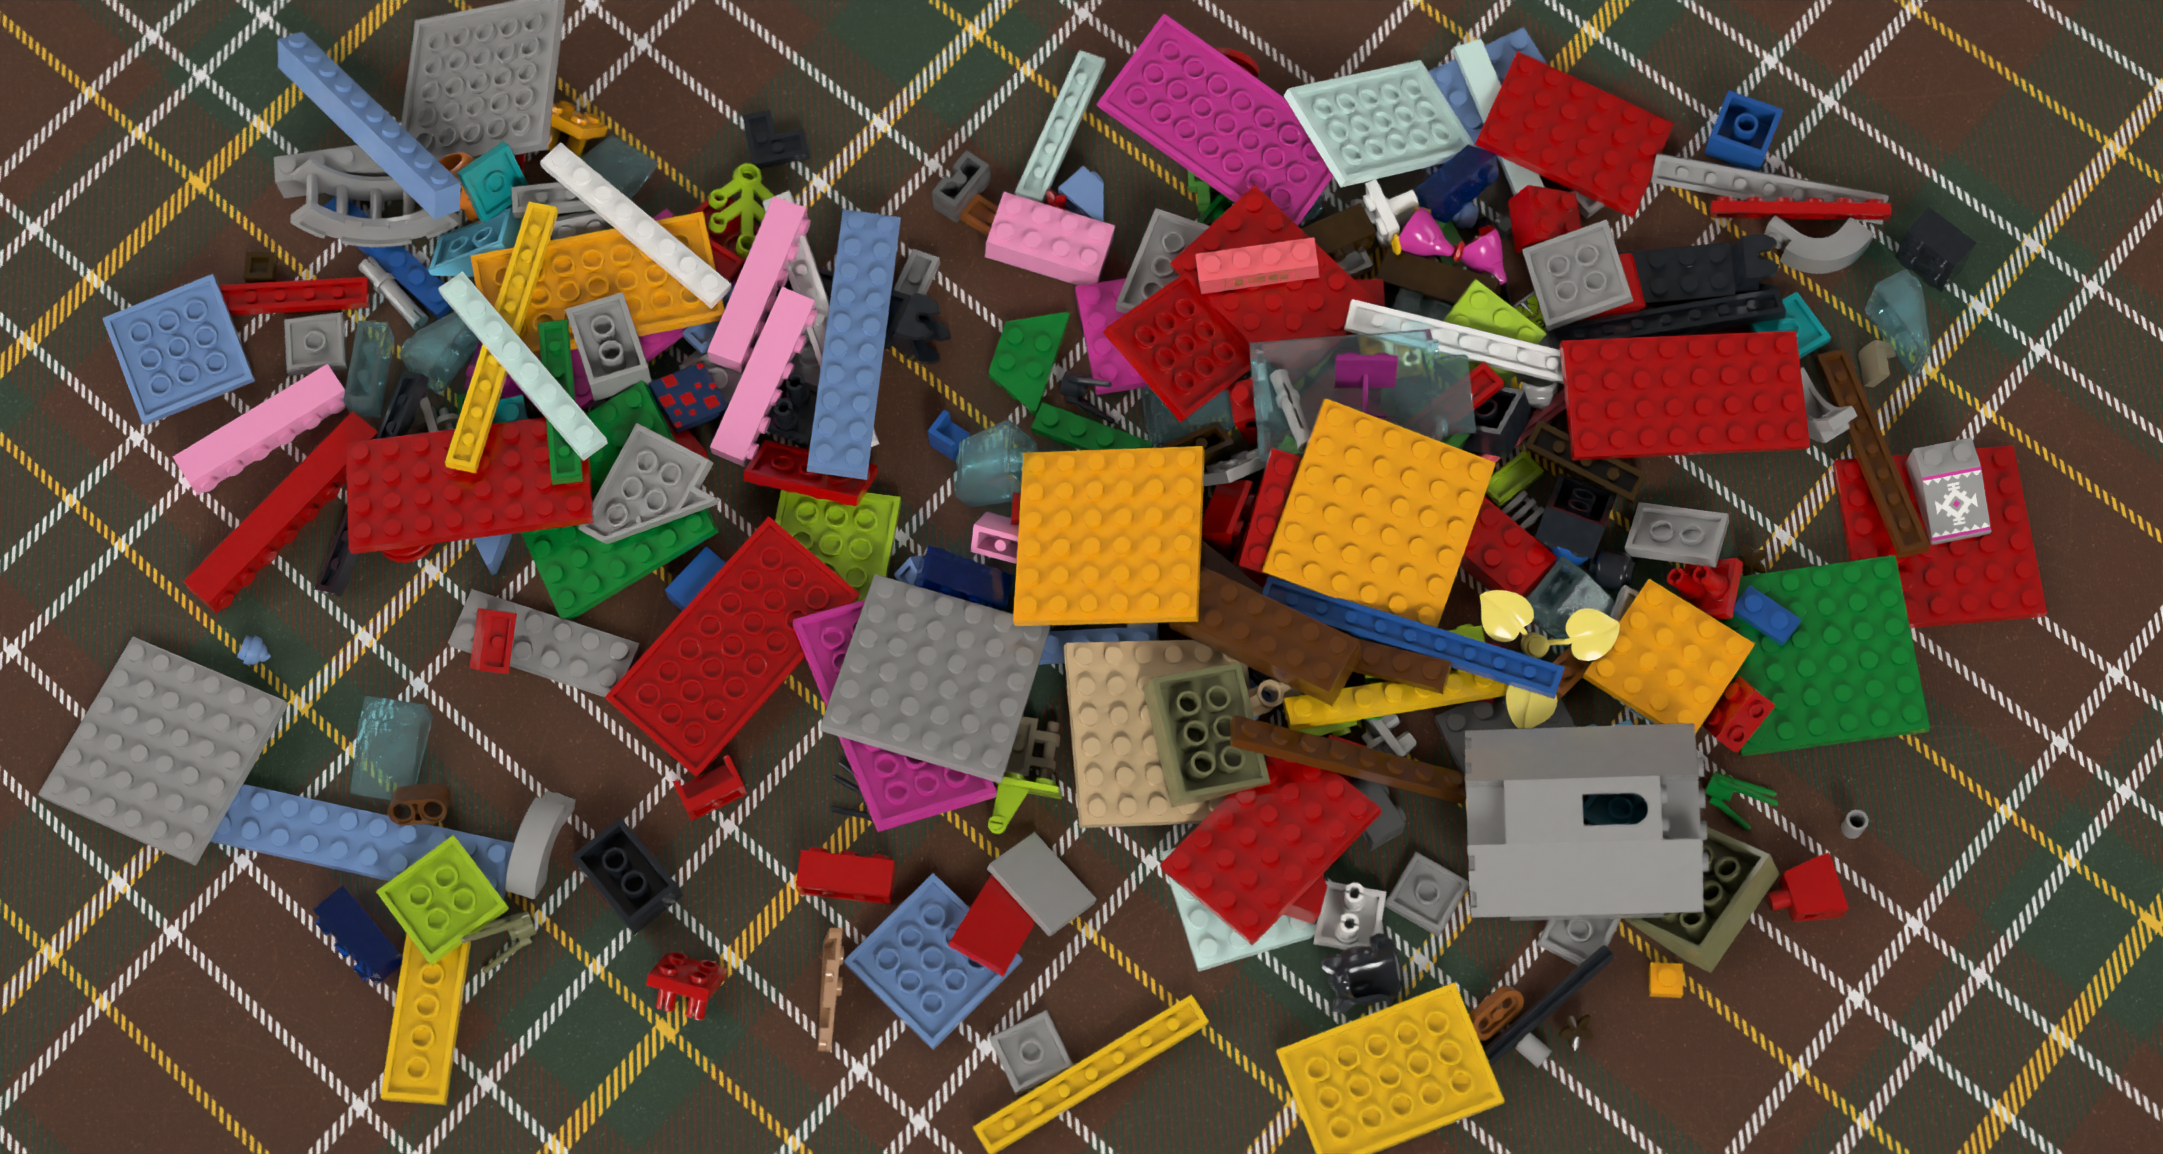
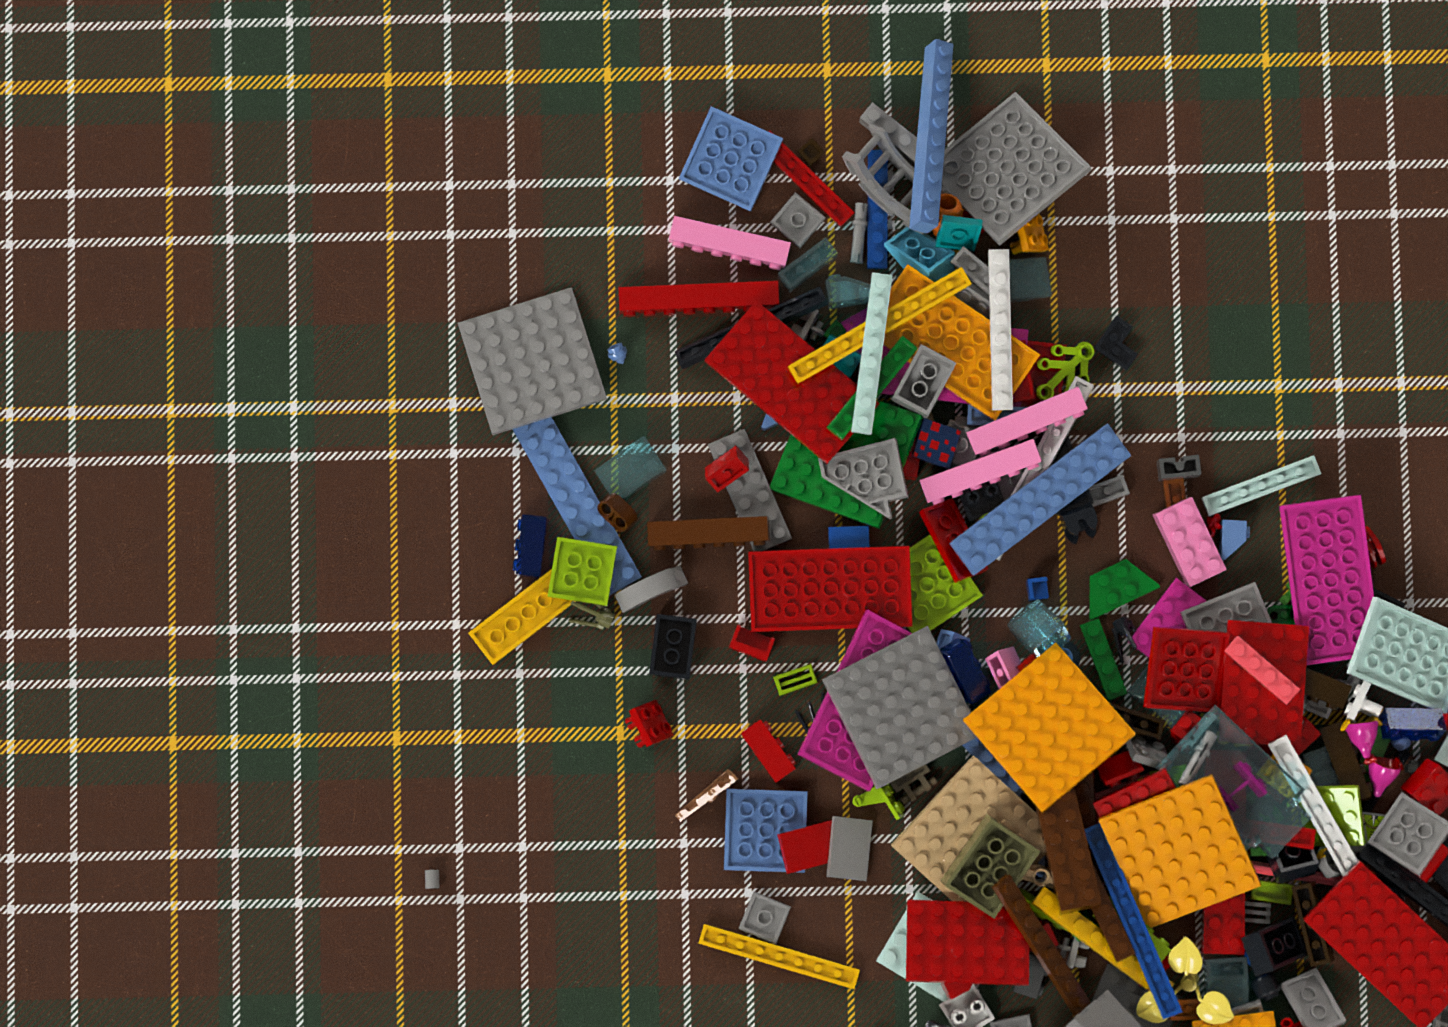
camera: 45 degrees right, 15 degrees up
(540, 723) = (708, 531): none -> reddish brown brick
(786, 801) = (782, 692): none -> lime tile

